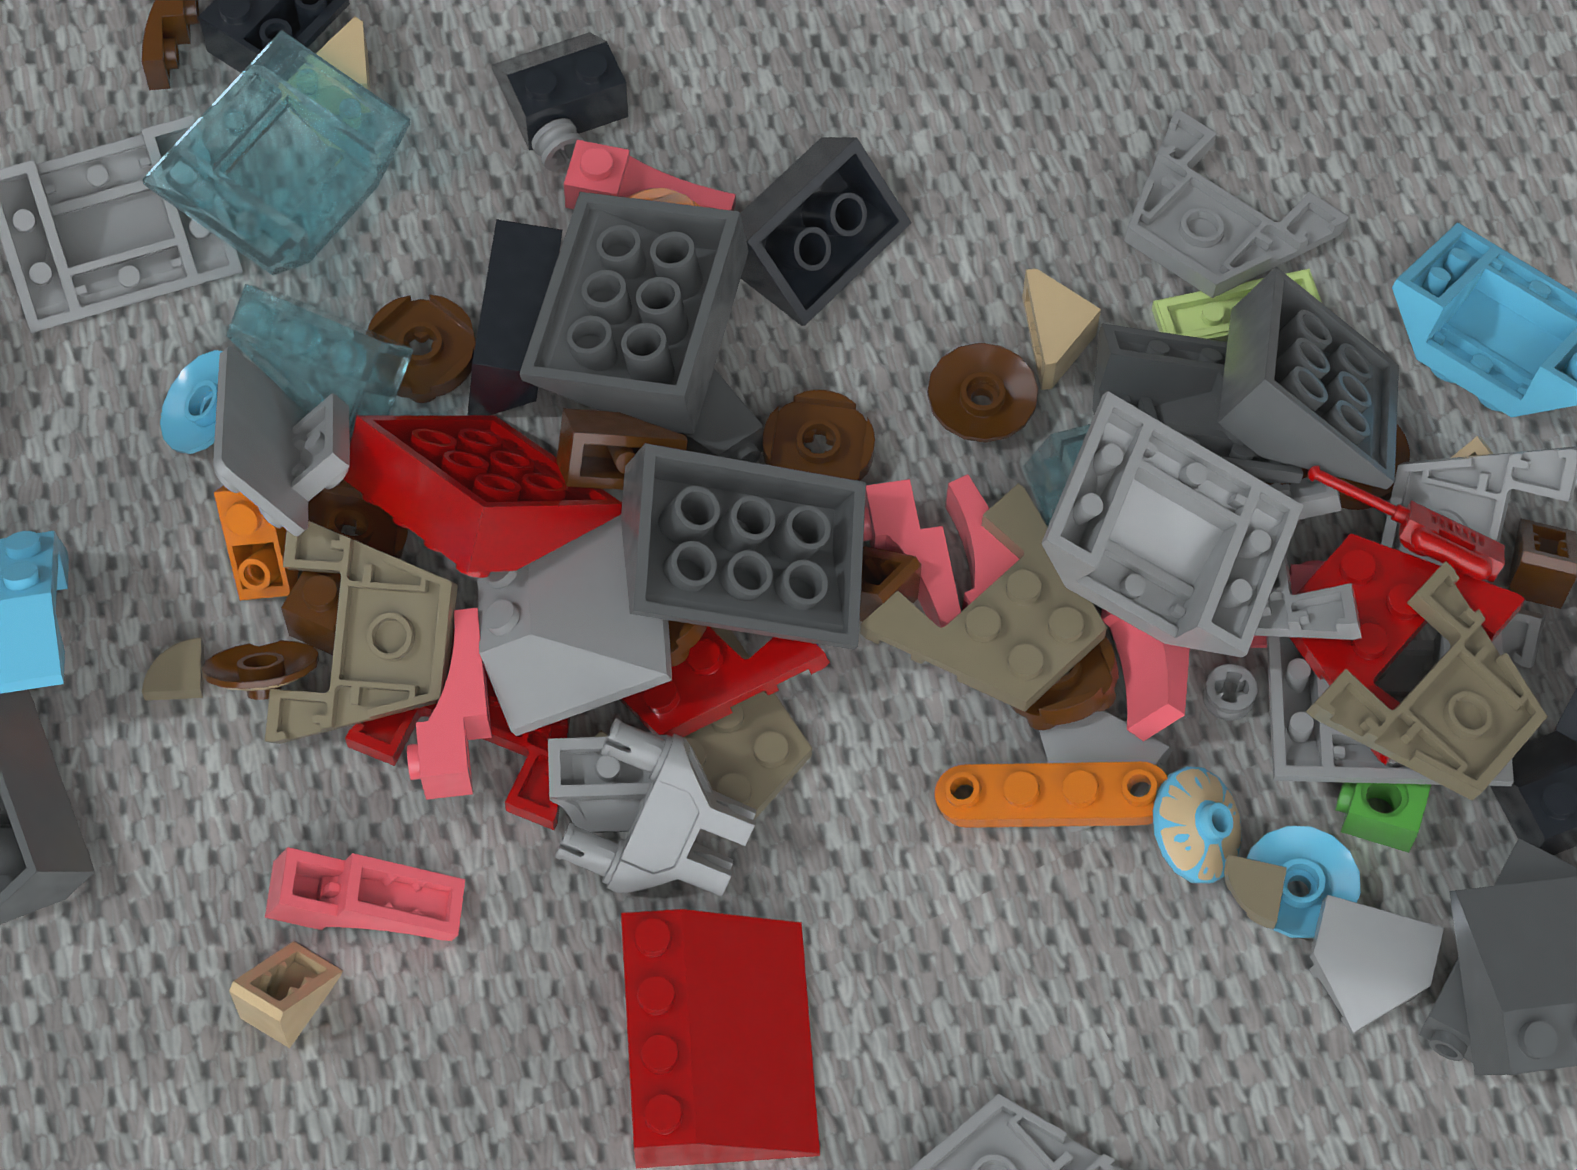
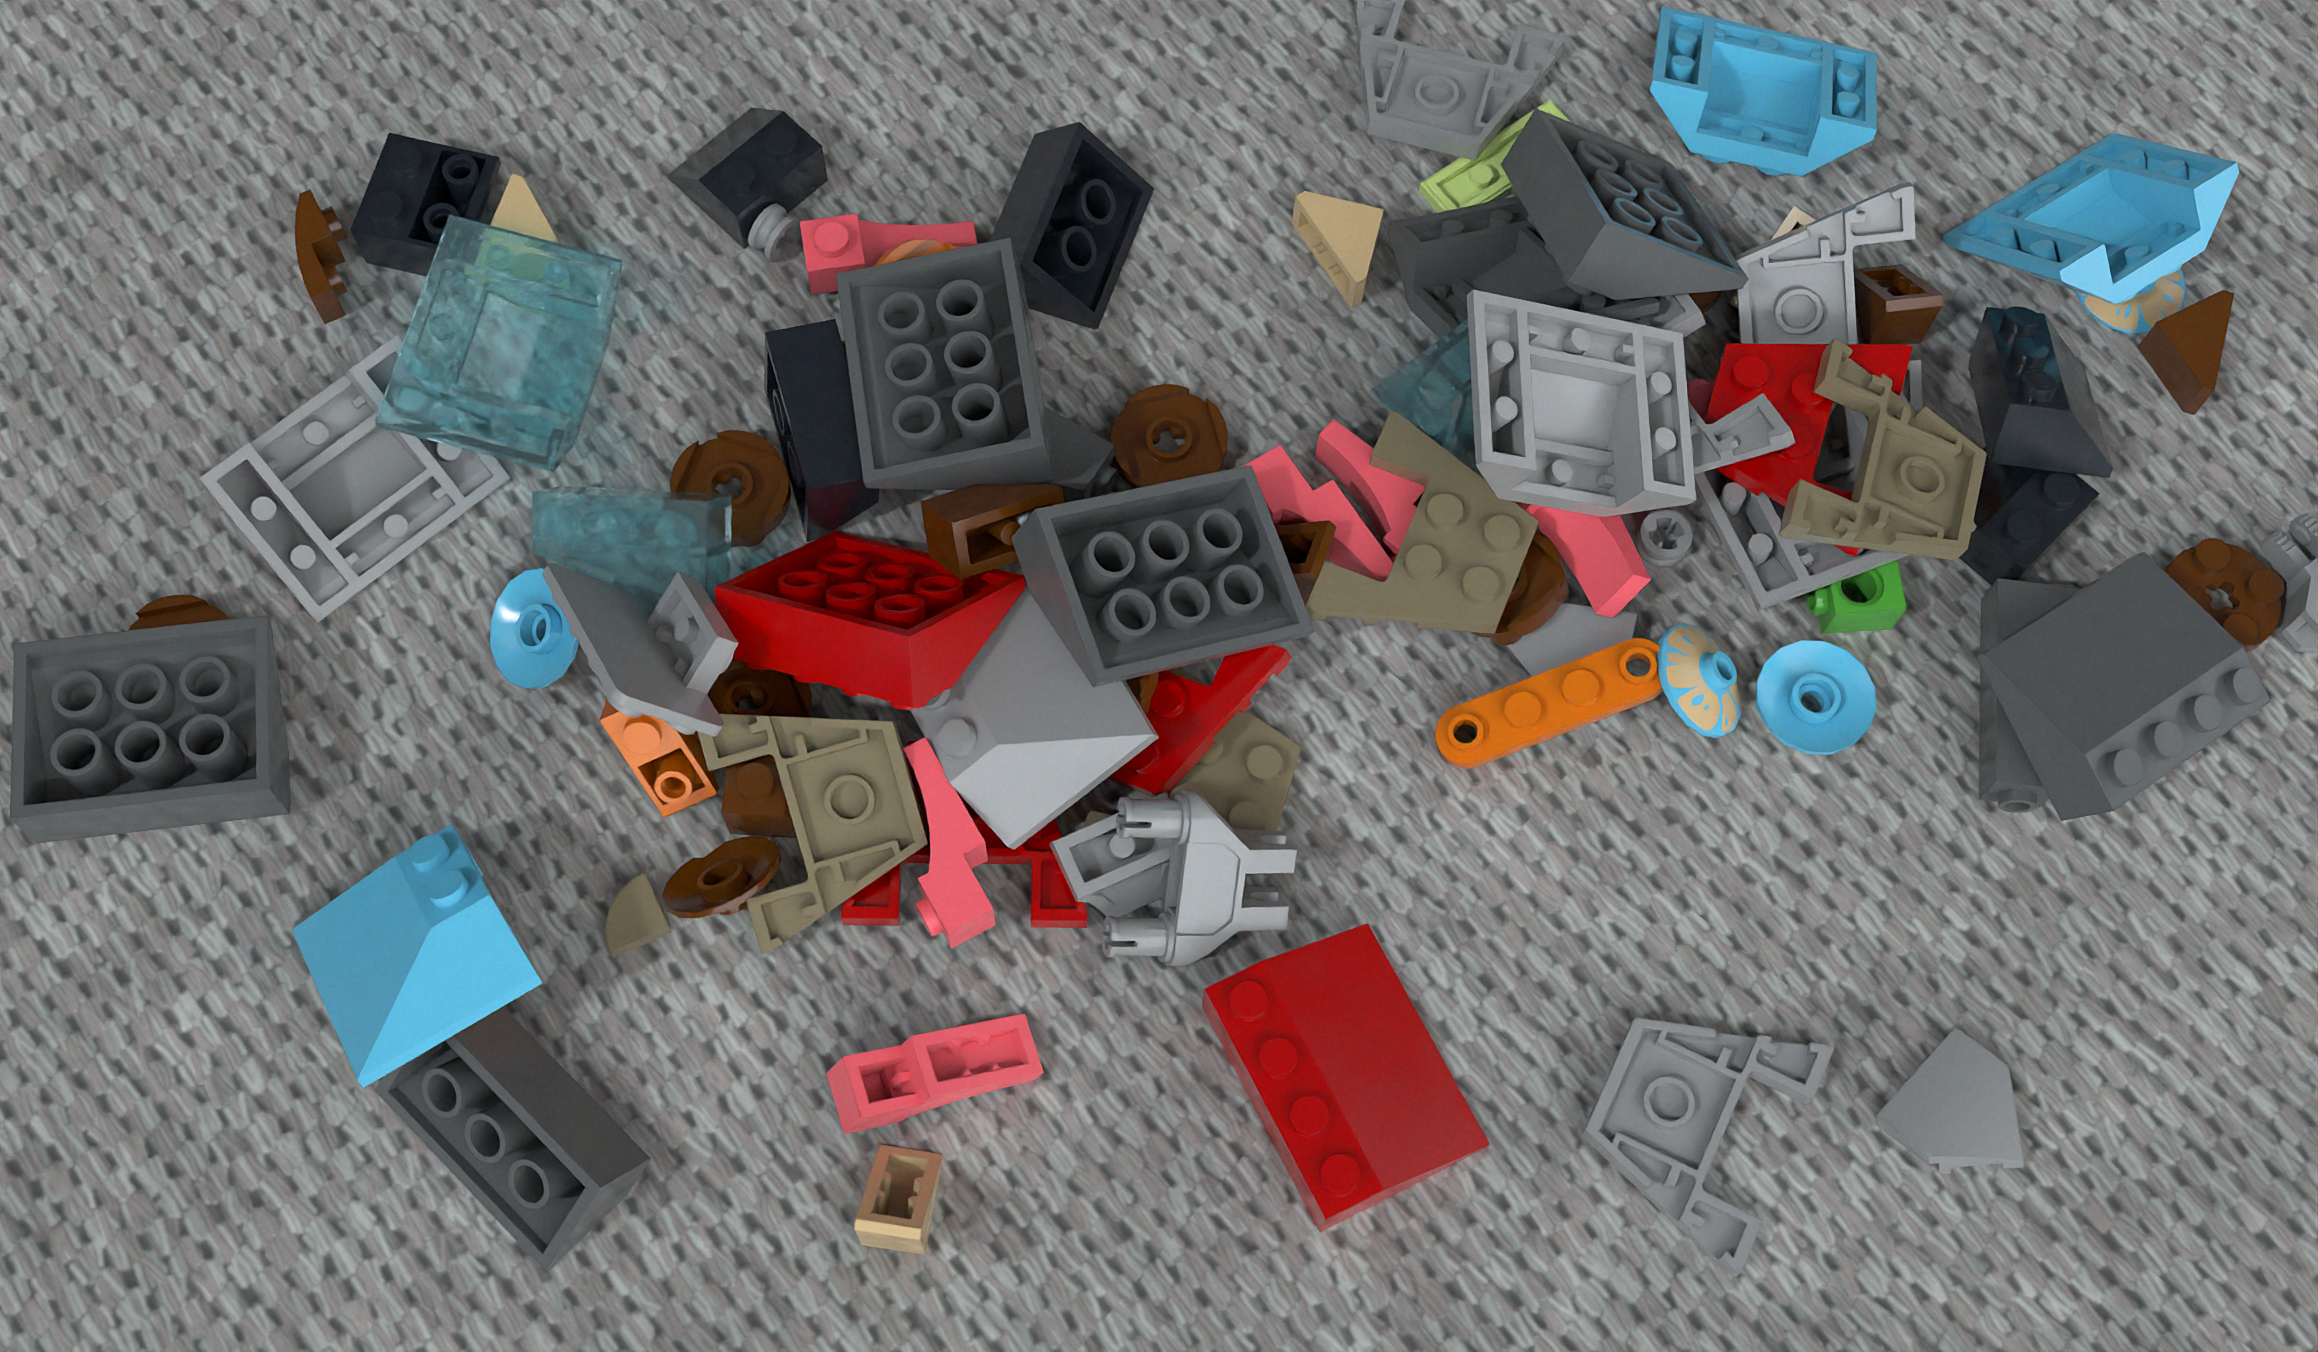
camera: 25 degrees left, 5 degrees up
(987, 372) = (1310, 311): reddish brown dish -> none
(1256, 888) = (1783, 720): dark tan tile -> none
(1371, 959) = (1913, 746): light grey slope -> none
(1430, 532) = (1798, 315): red piece -> none

